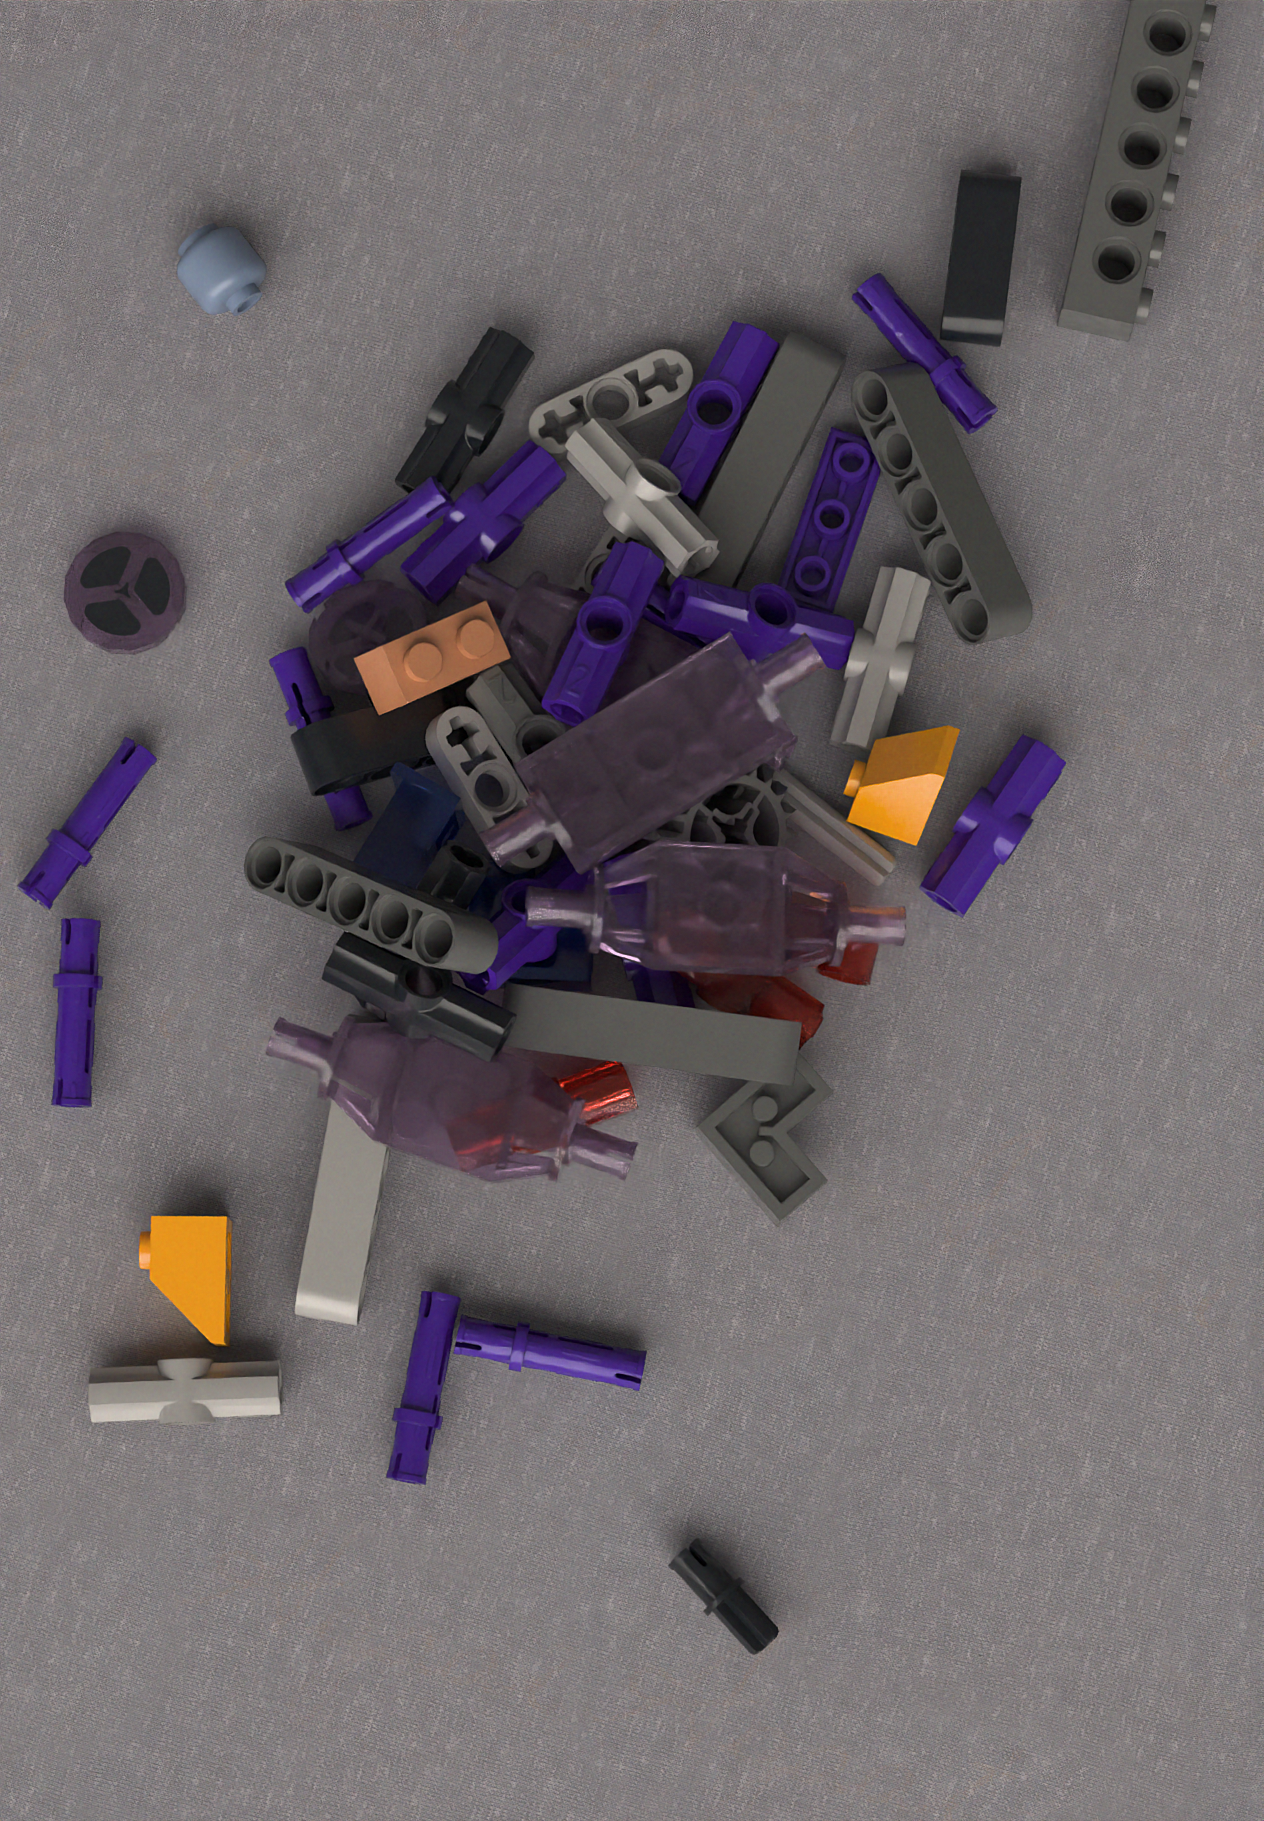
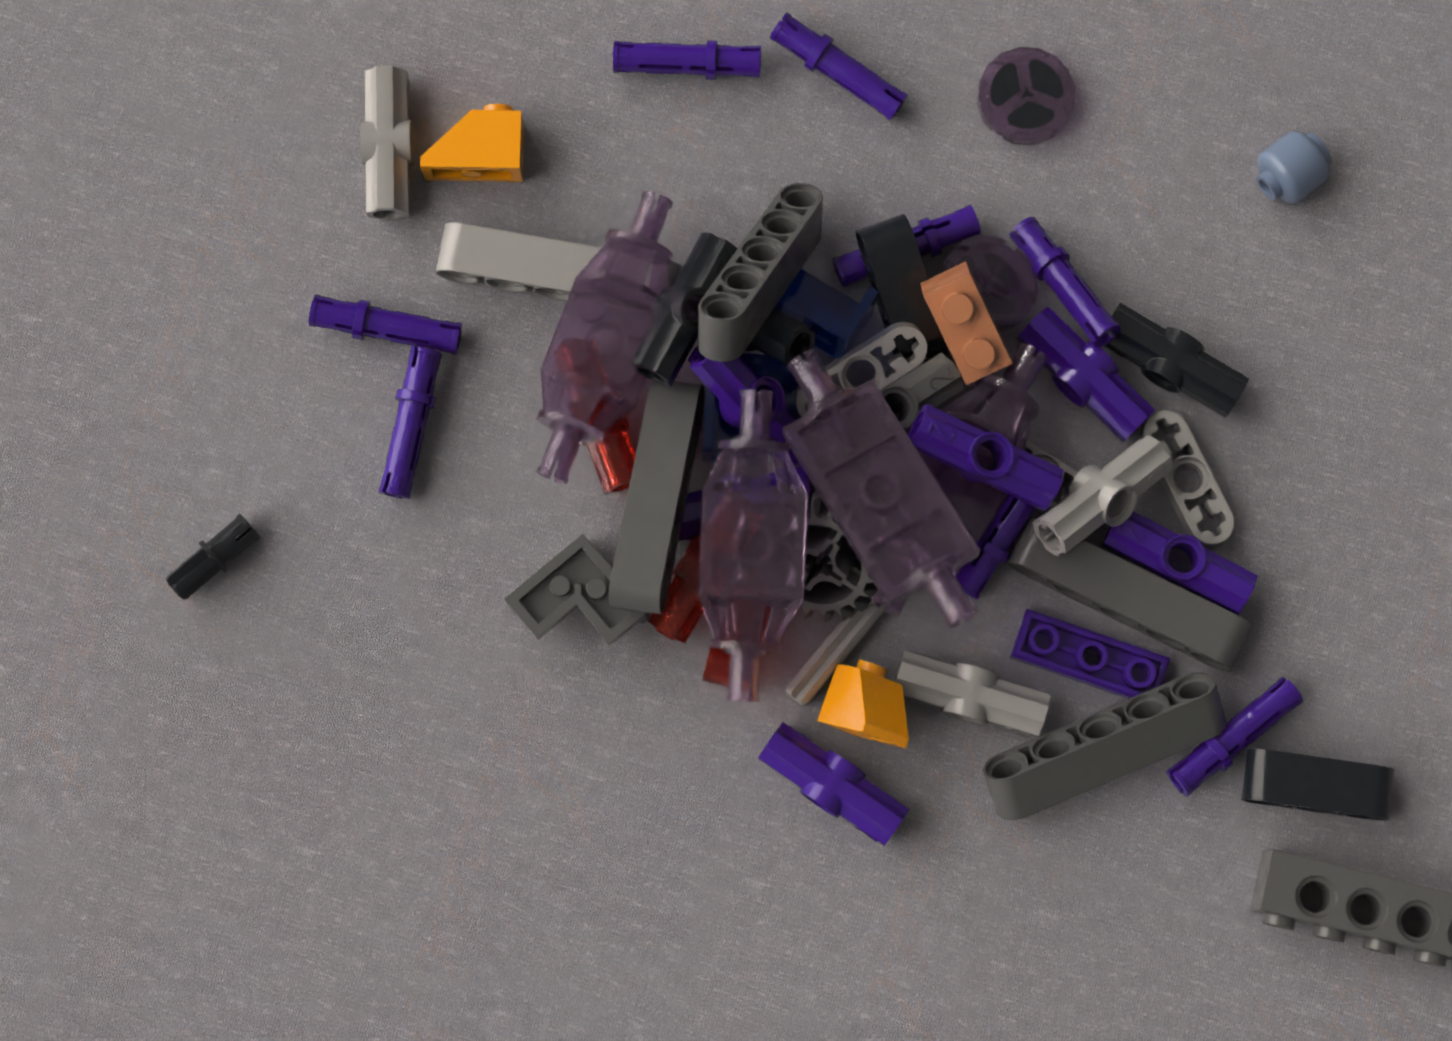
camera: 85 degrees right, 0 degrees up
(757, 619) = (1005, 566): dark purple piece -> none

